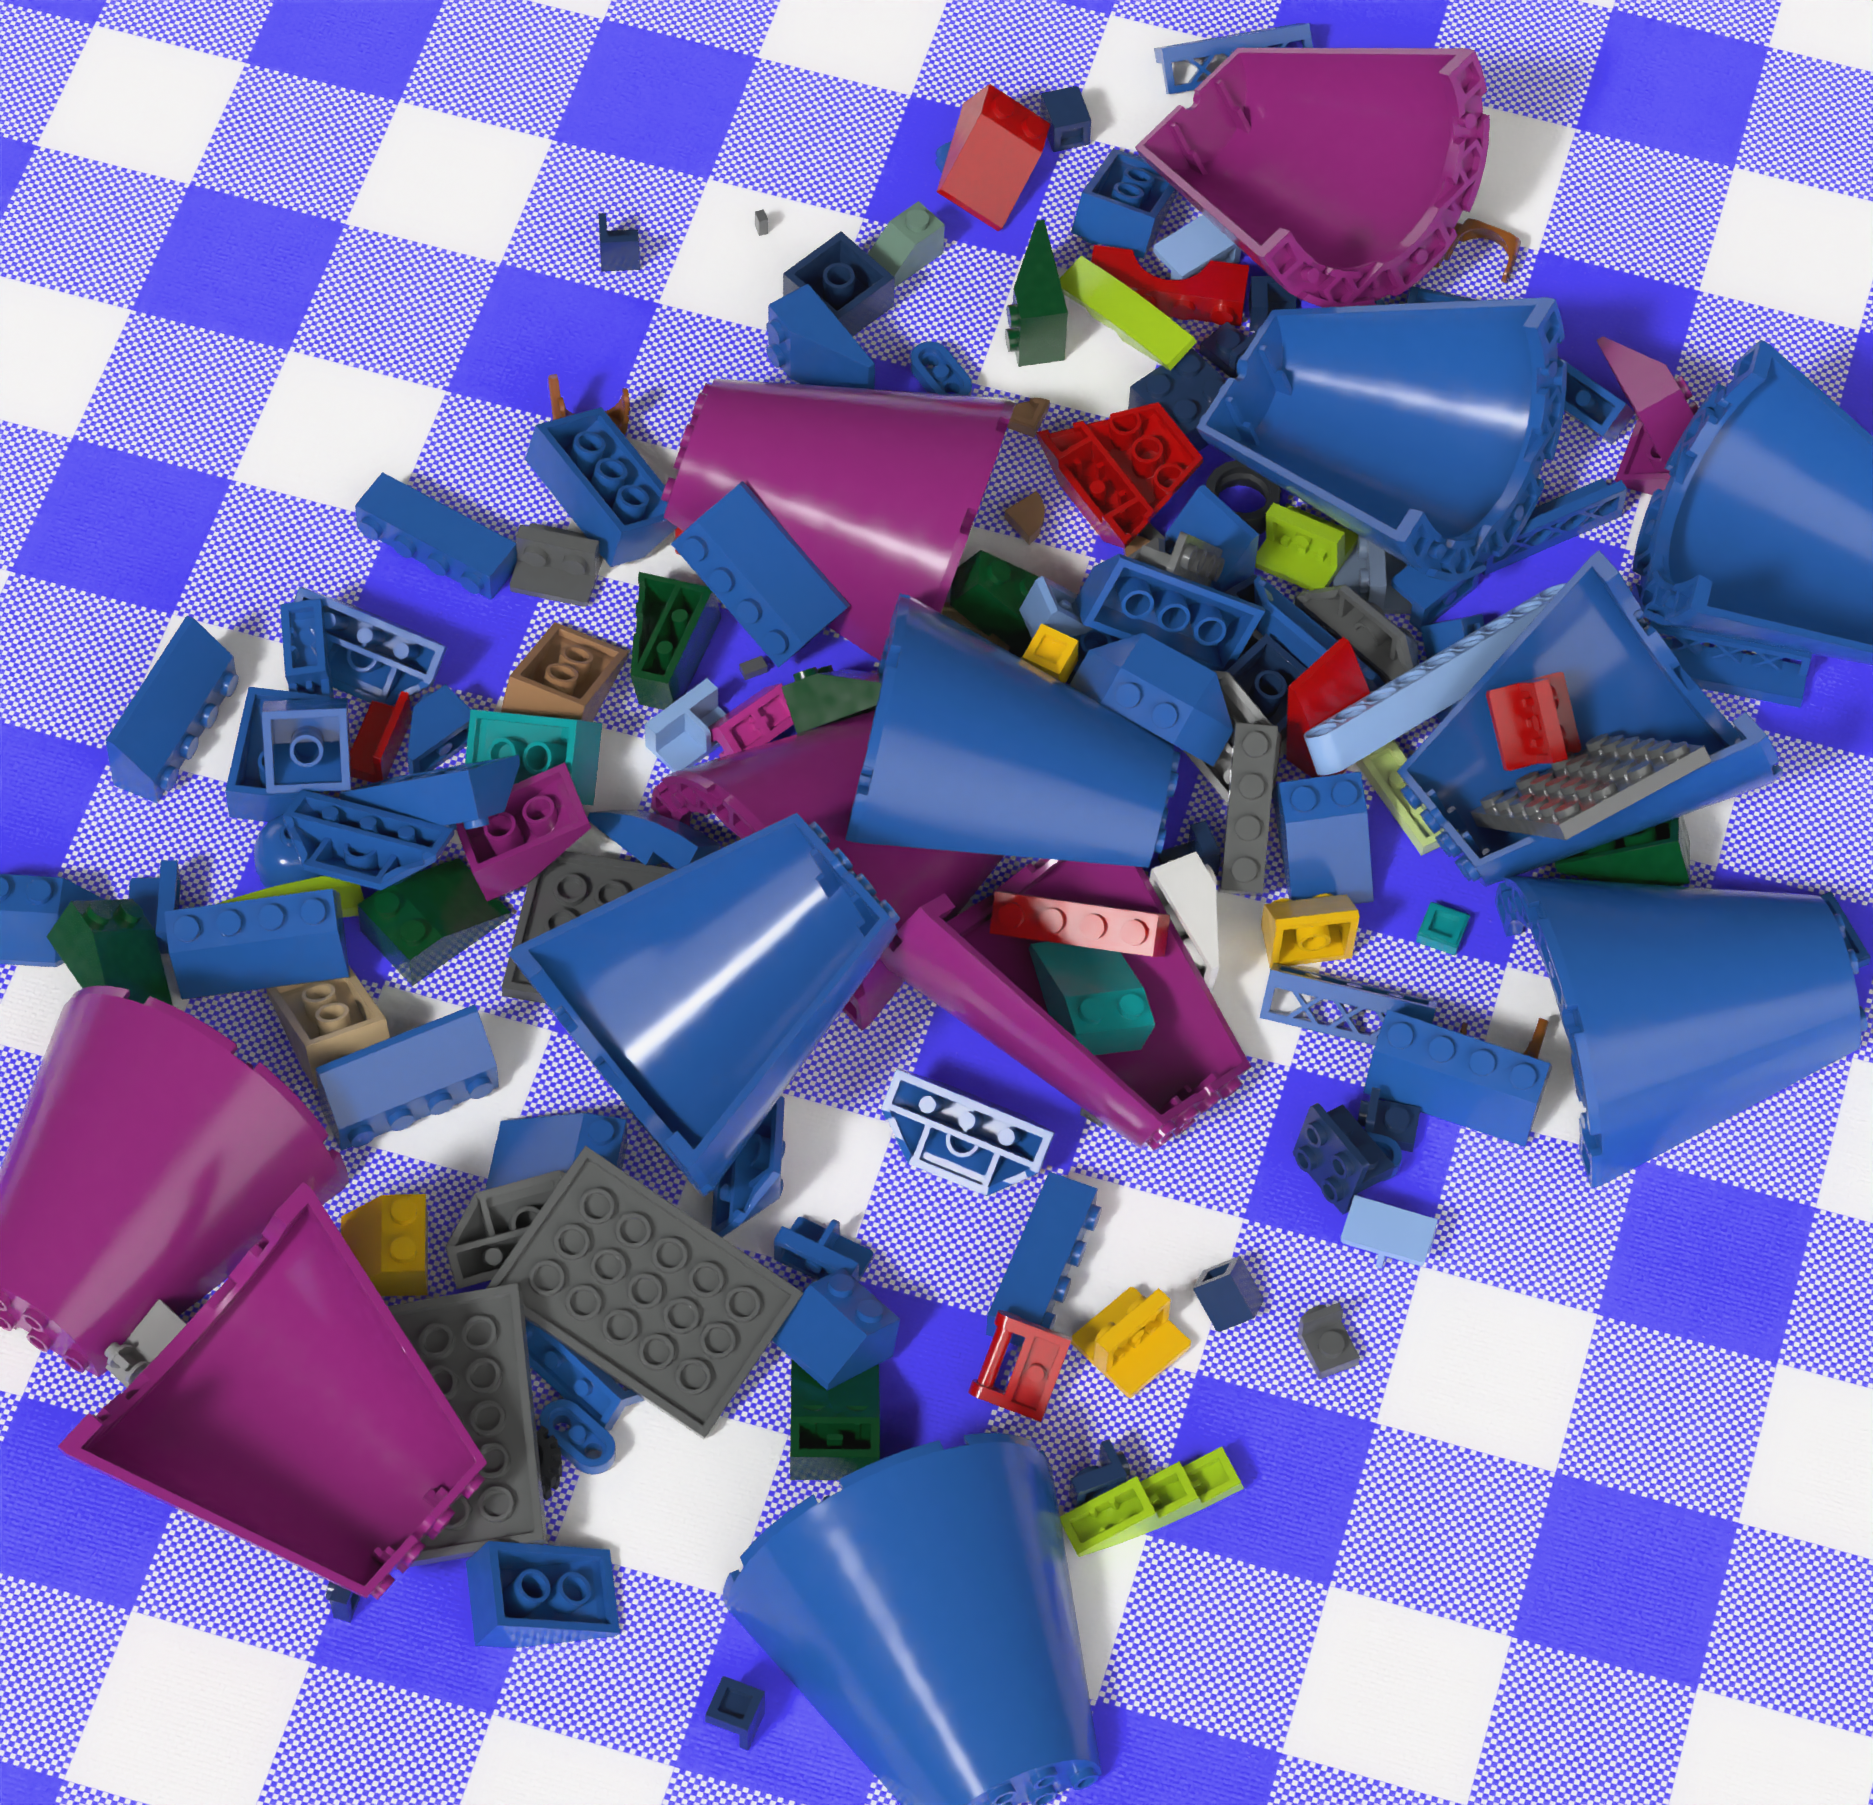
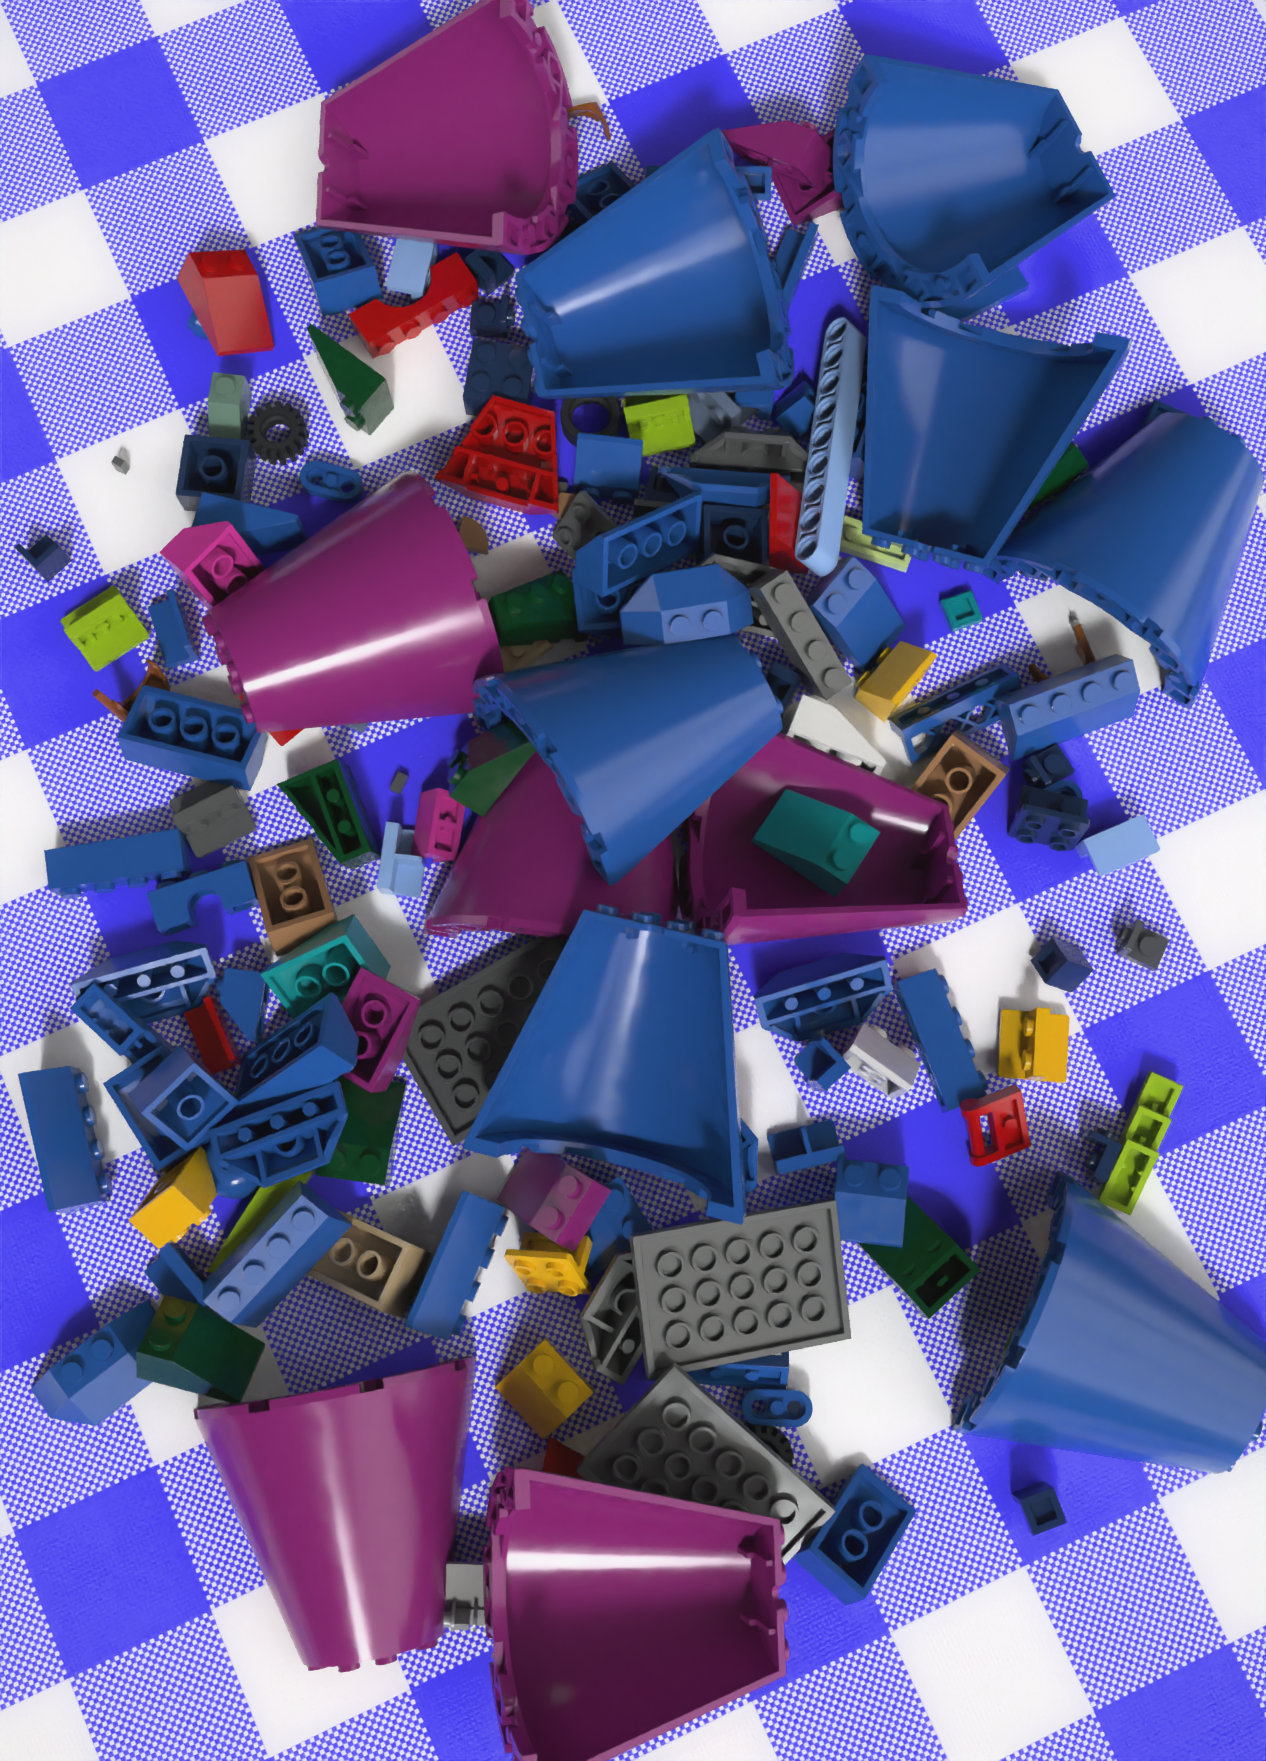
camera: 40 degrees left, 20 degrees up
(217, 826) = (176, 1201): none -> yellow slope
(456, 606) = (175, 903): none -> blue arch
(490, 1142) = (549, 1266): none -> yellow bracket
(552, 1093) = (553, 1197): none -> magenta slope
(613, 343) = (104, 628): none -> lime bracket
(654, 837) = (452, 959): blue slope -> none
(673, 391) = (173, 631): none -> blue panel
(760, 339) = (212, 561): none -> dark pink slope
(760, 574) = (359, 725): blue slope -> none
(904, 1183) = (820, 1064): none -> blue panel
(932, 282) = (275, 416): none -> black tyre
(964, 1221) = (881, 1062): none -> white slope
(1029, 416) = (407, 461): medium nougat tile -> none
(1052, 652) = (600, 634): yellow brick -> none
(1053, 607) = (571, 603): medium blue slope -> none
(1067, 118) = (246, 233): dark blue panel -> none
(1079, 924) = (744, 819): arch -> none
(1126, 313) = (416, 347): lime slope -> none
(1189, 559) = (620, 508): dark grey bracket -> none
(1224, 45) = (299, 105): blue fence -> none
(1291, 1063) = (962, 778): none -> medium nougat slope
(1533, 721) = (916, 433): red bracket -> none
(1588, 786) = (1014, 455): dark grey plate -> none

